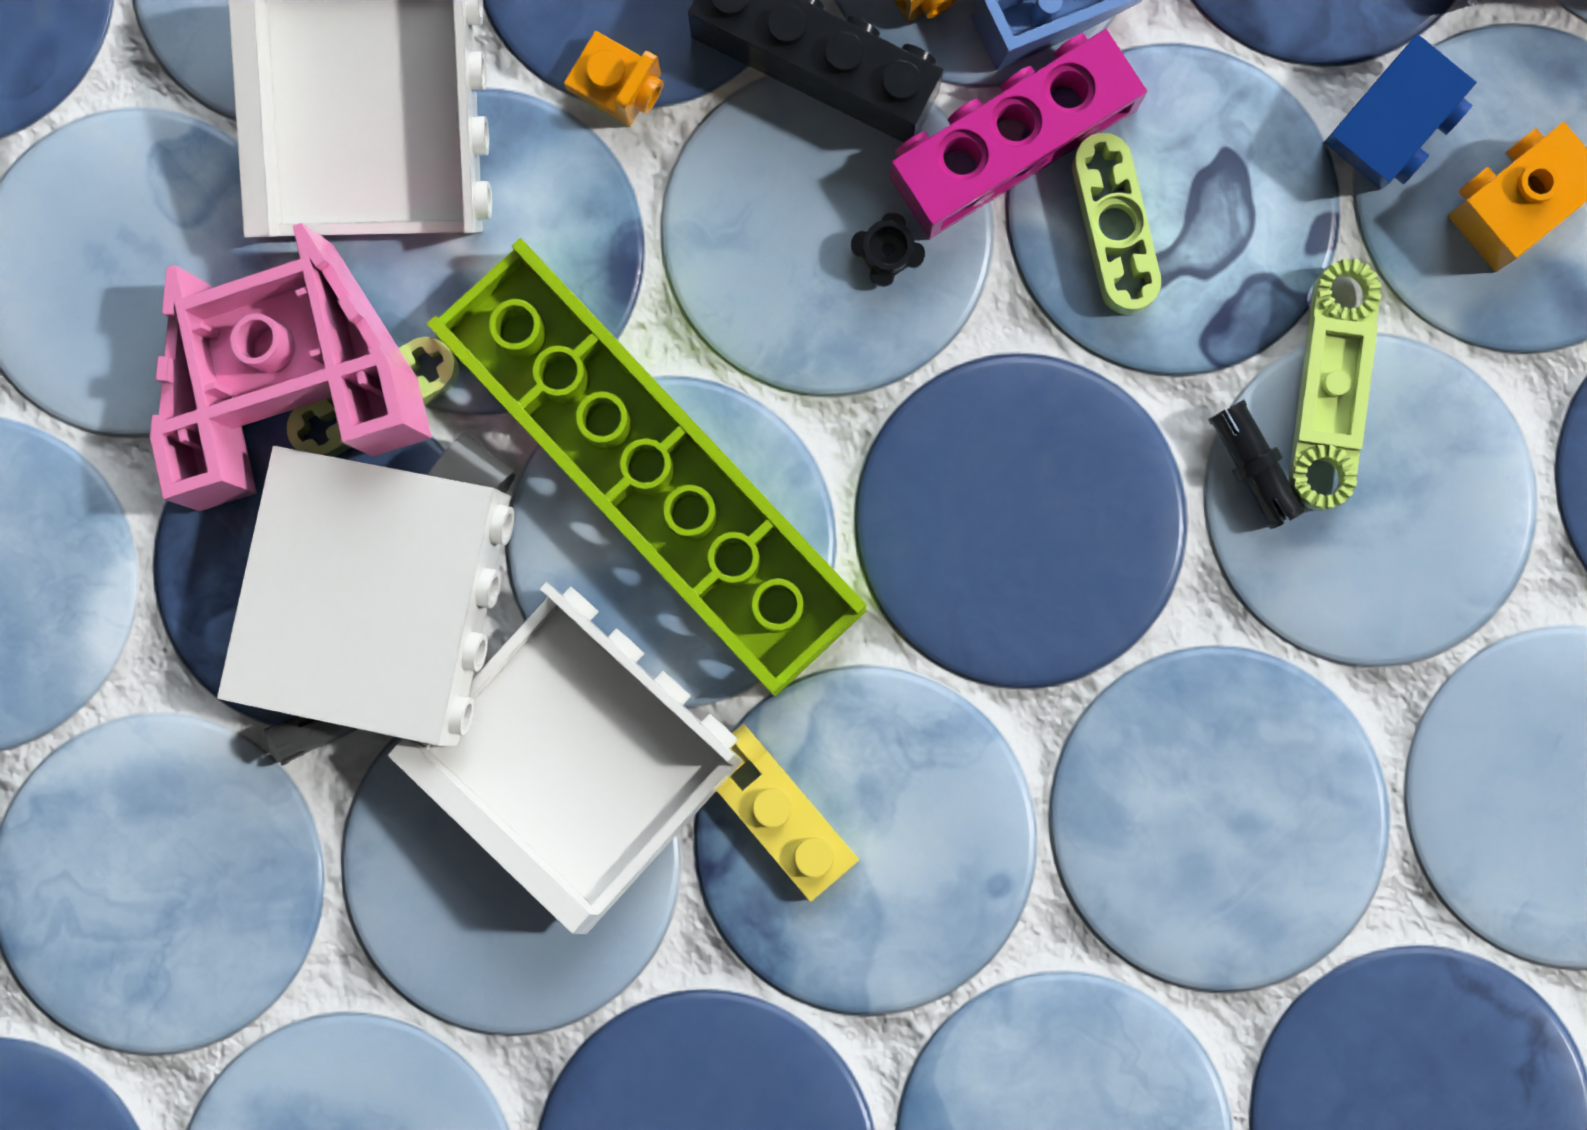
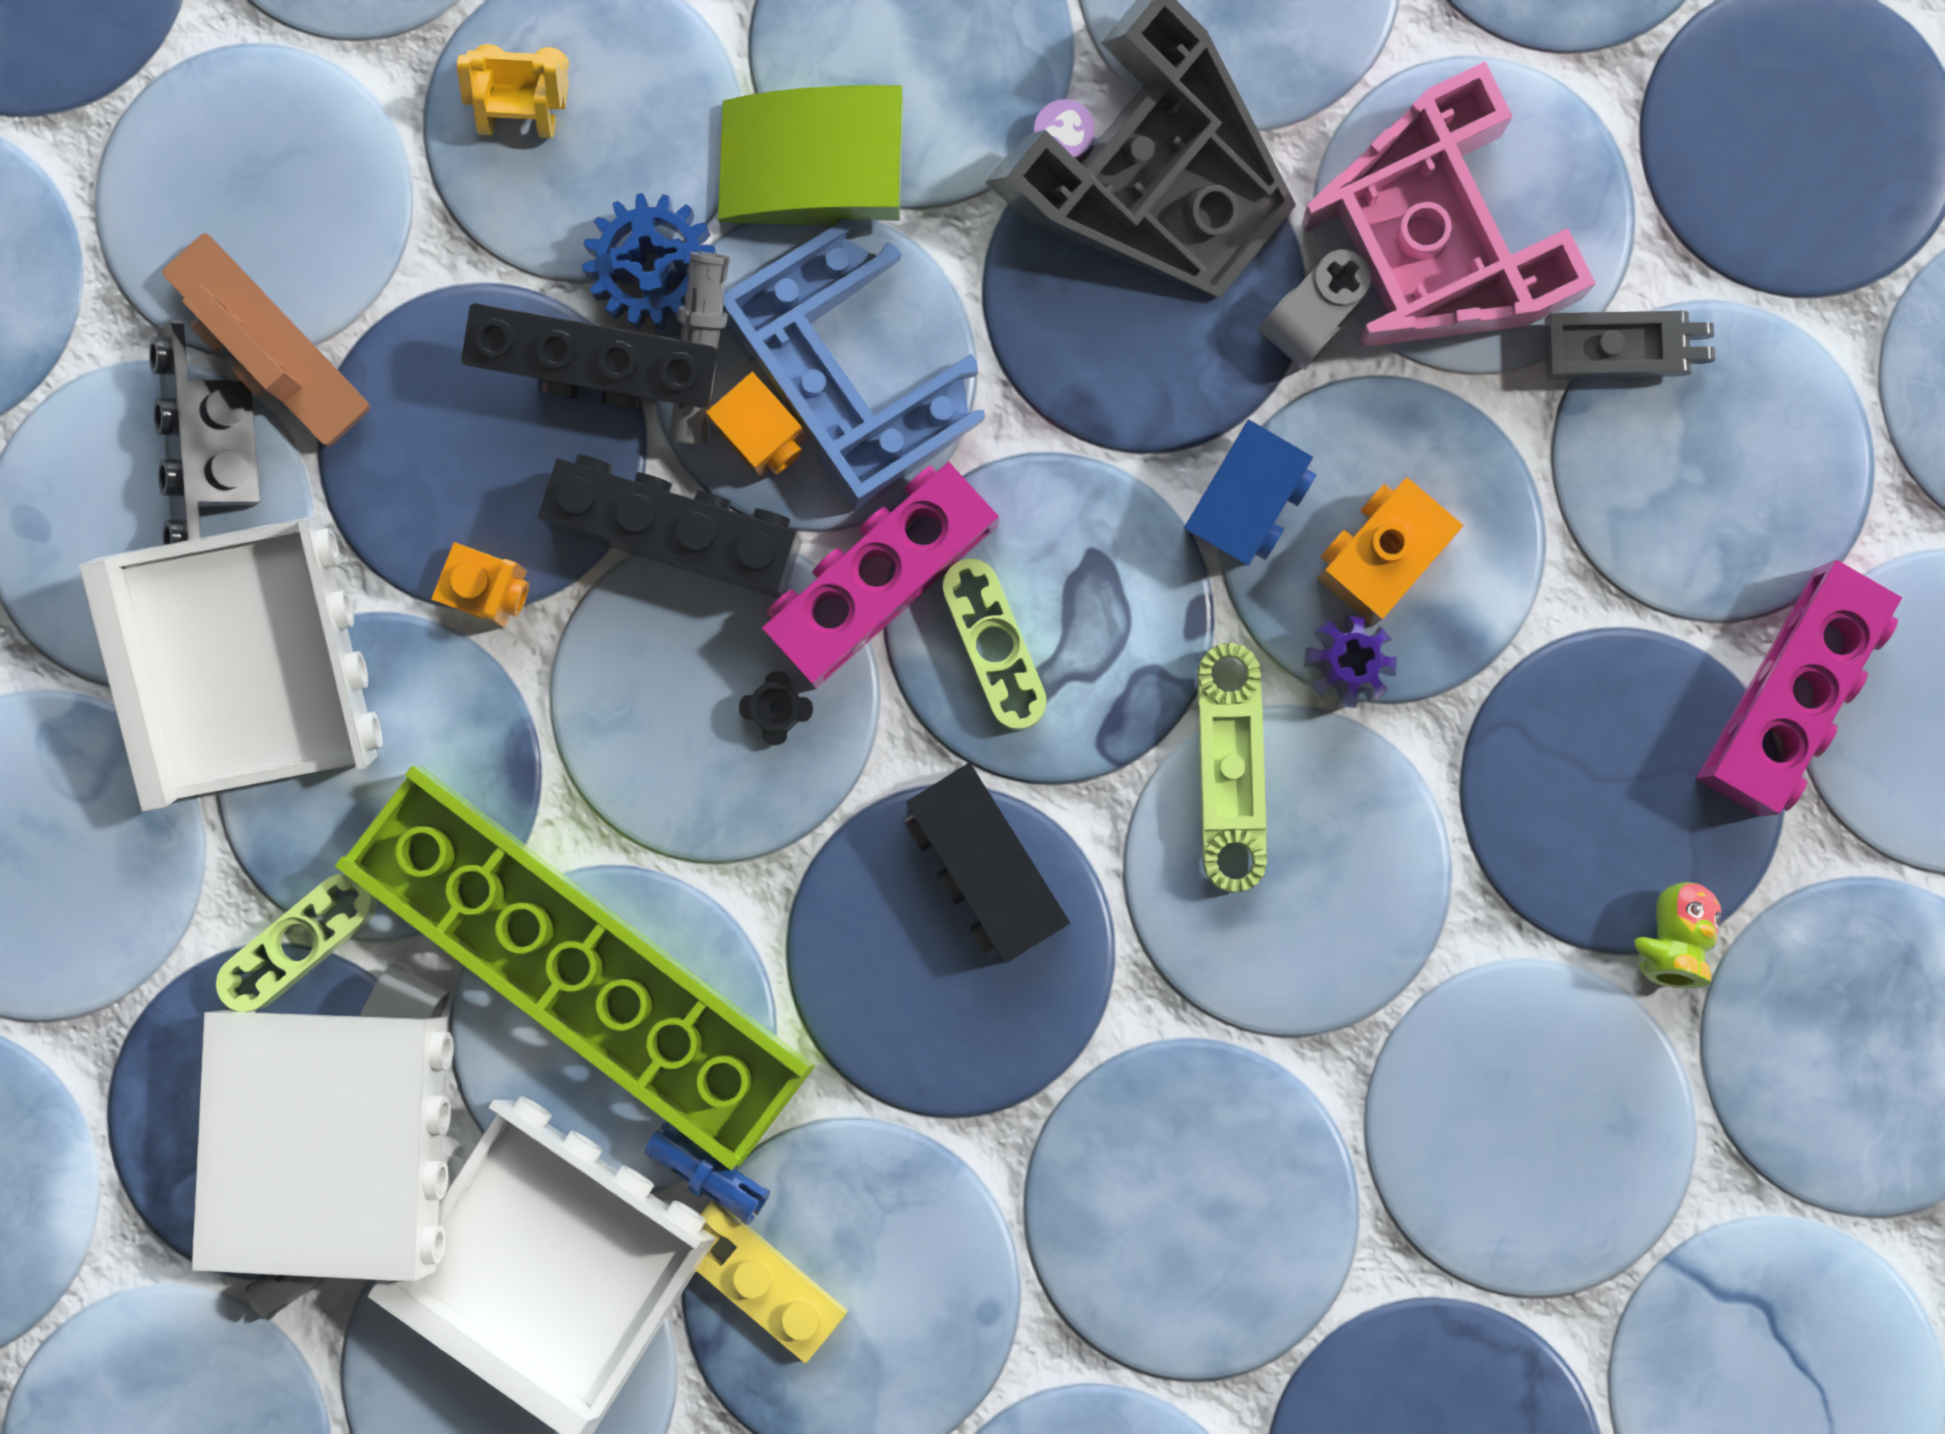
camera: 10 degrees left, 0 degrees up
(269, 350) = (185, 919): bright pink wedge -> none
(744, 695) = (706, 1174): none -> blue pin
(1073, 436) = (984, 864): none -> black brick
(1257, 464) = (1169, 859): black pin -> none
(1473, 317) = (1345, 680): none -> dark purple piece

